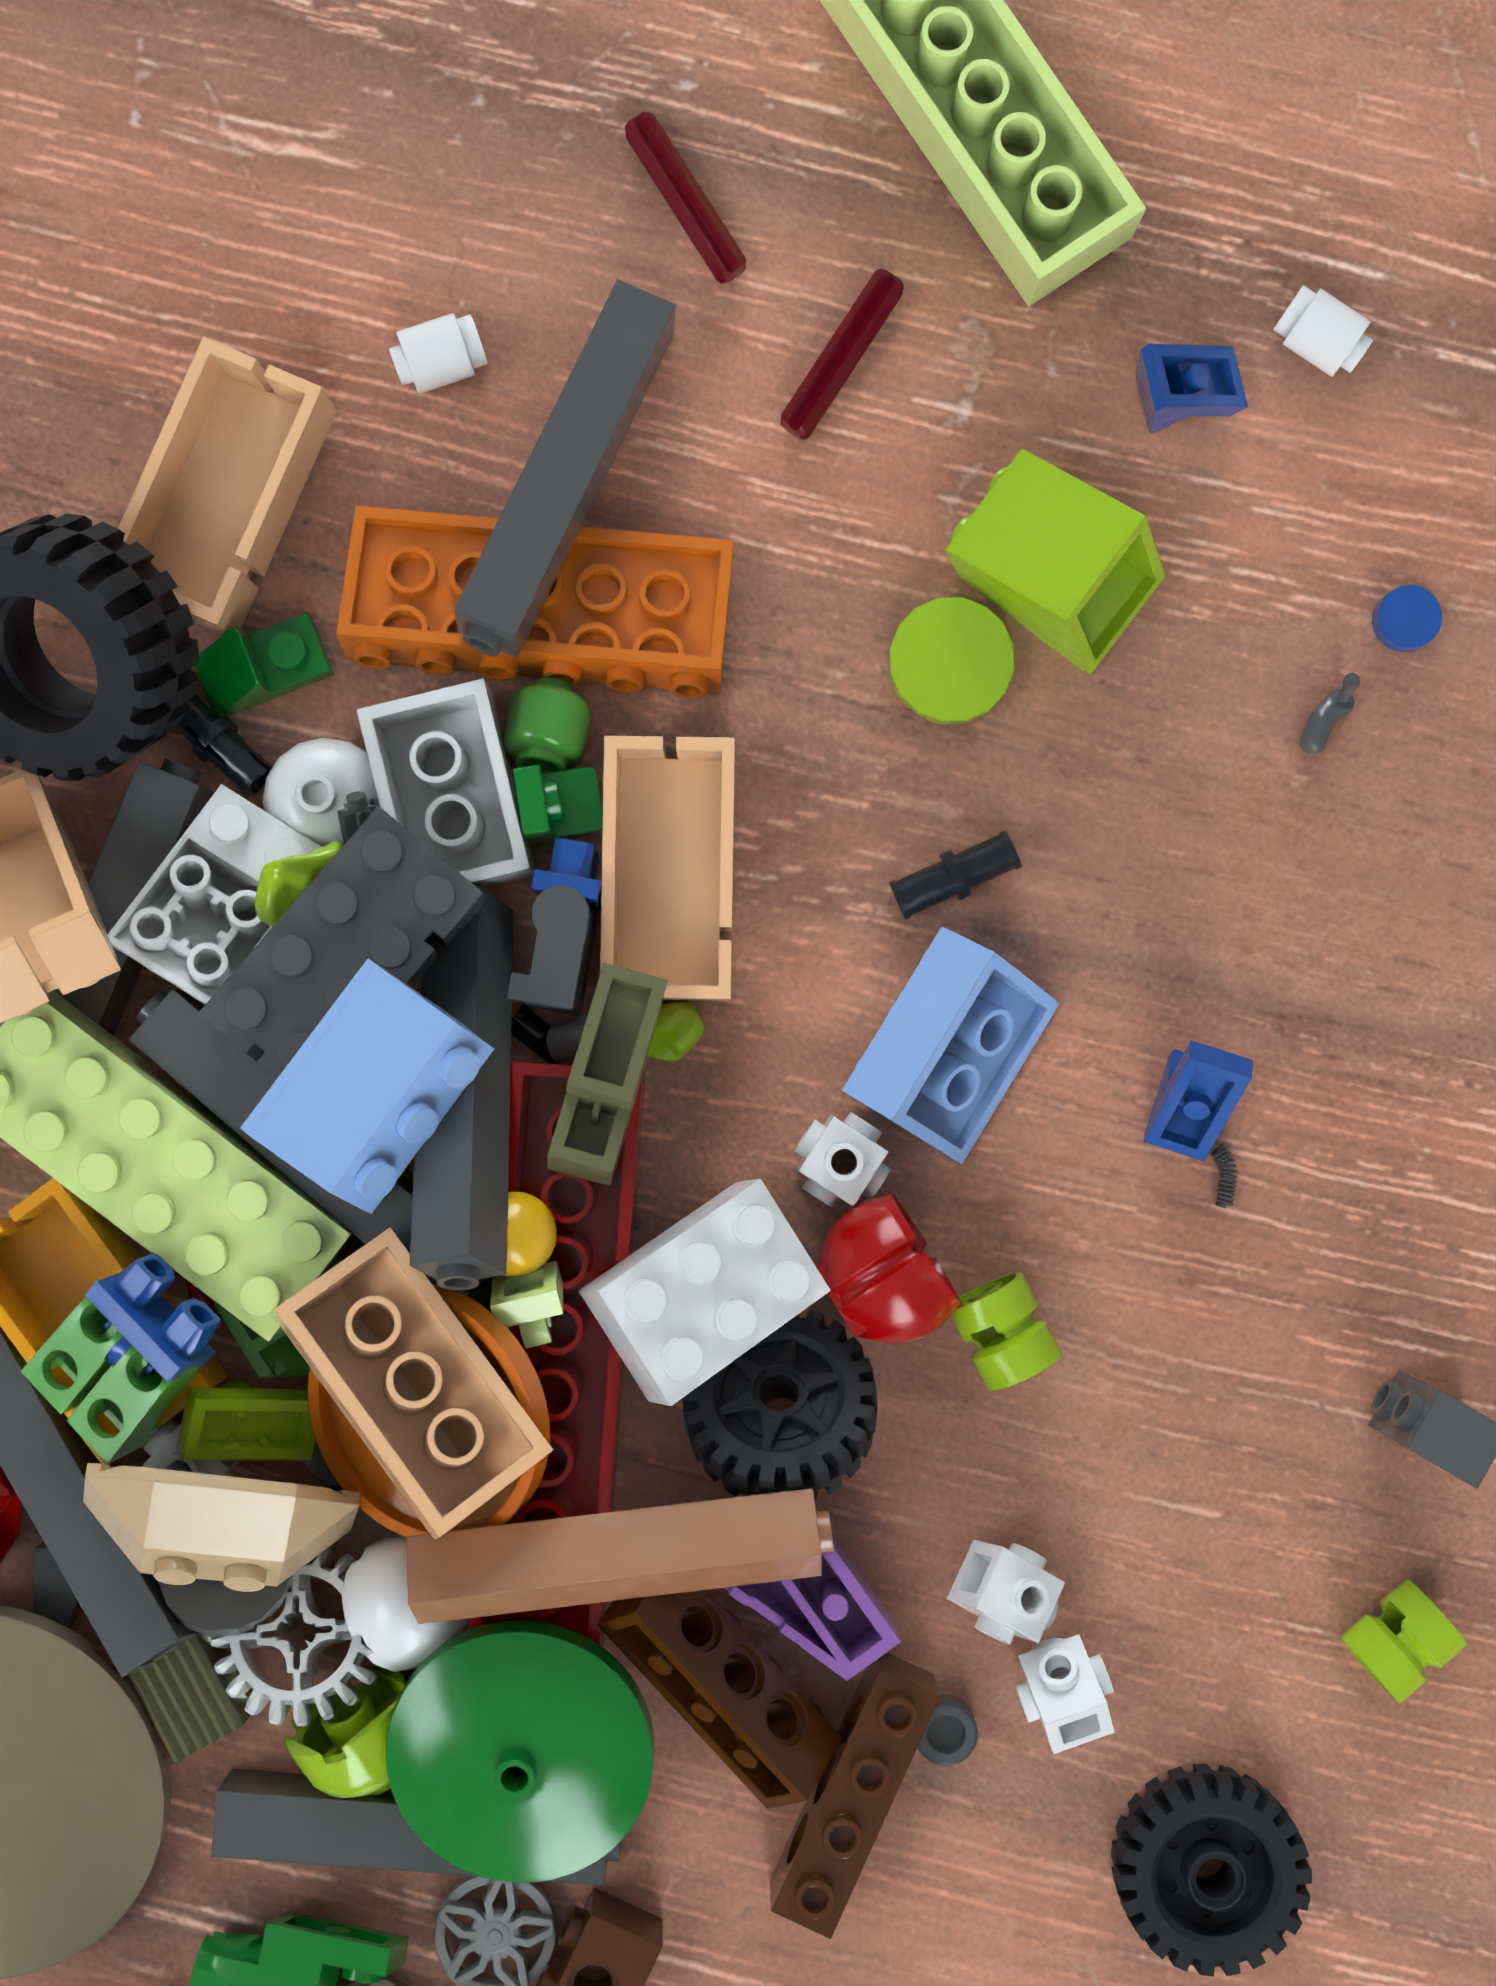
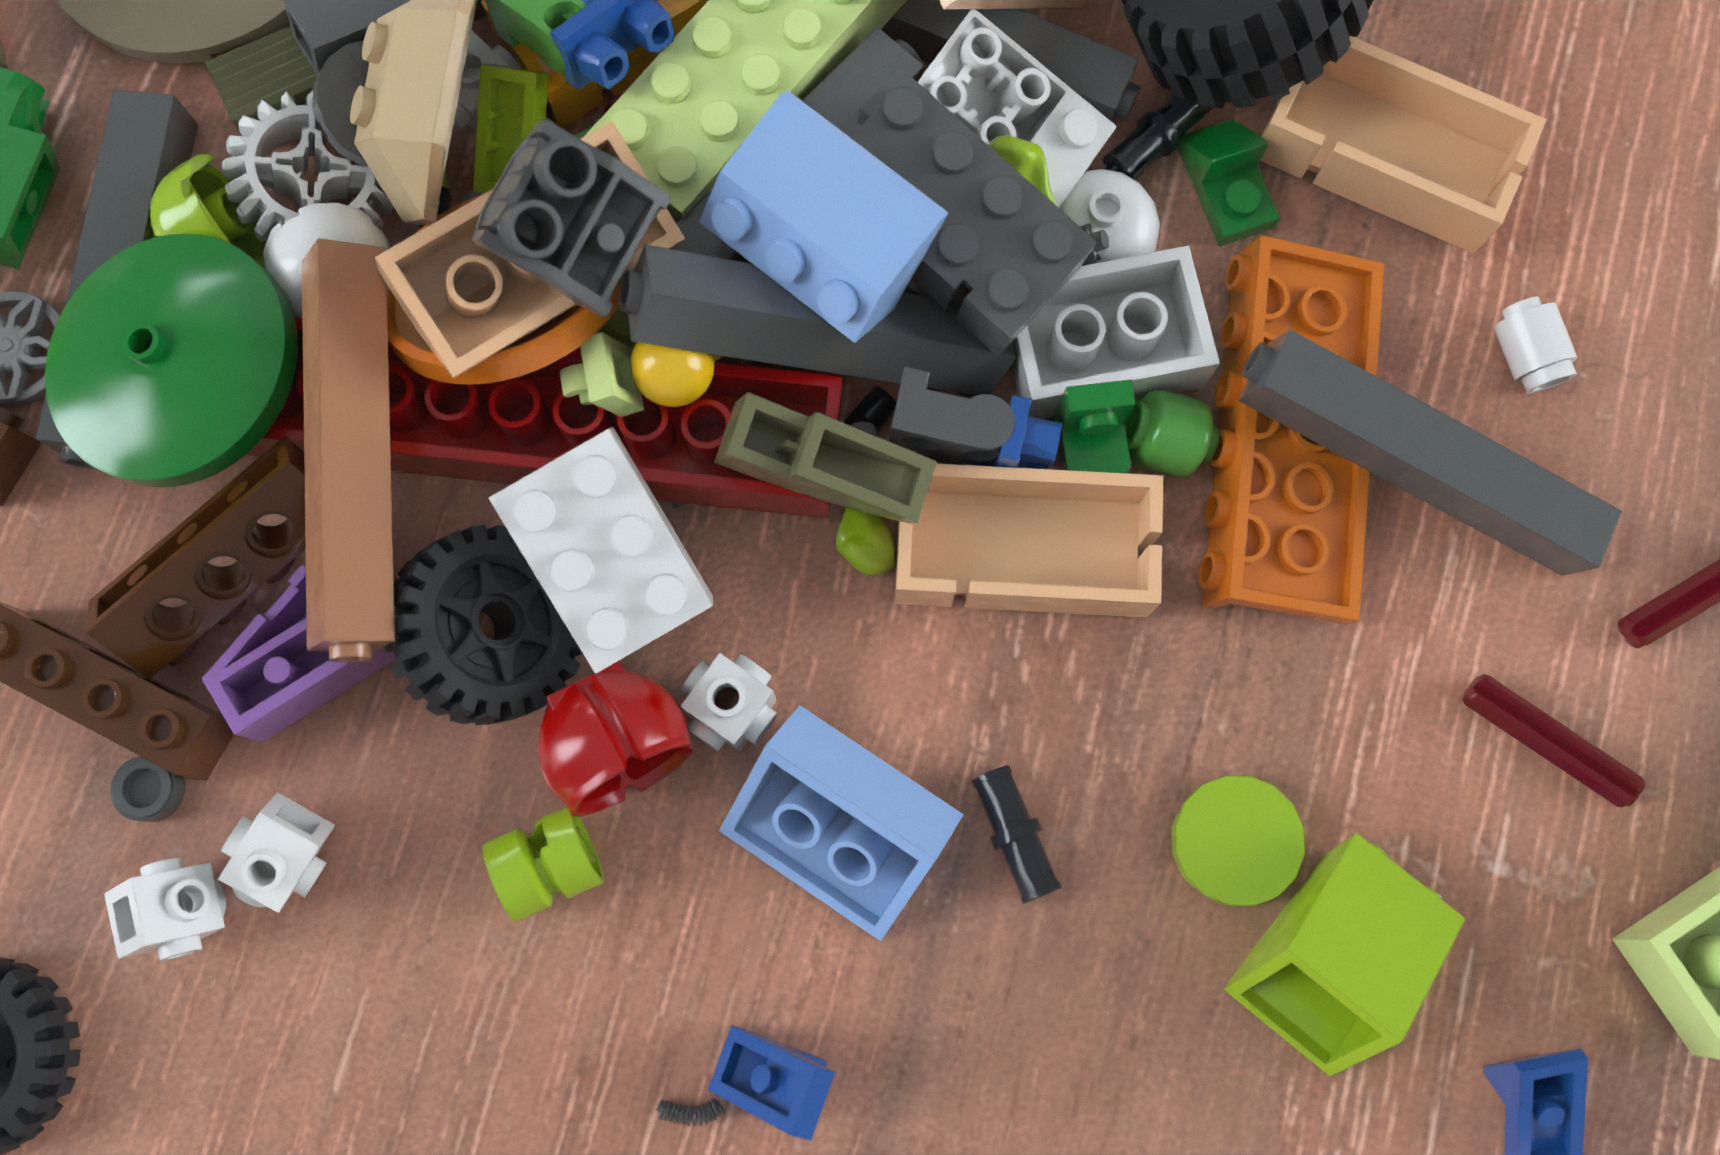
camera: 95 degrees right, 10 degrees down
(387, 1346) = (568, 215): none -> dark grey slope

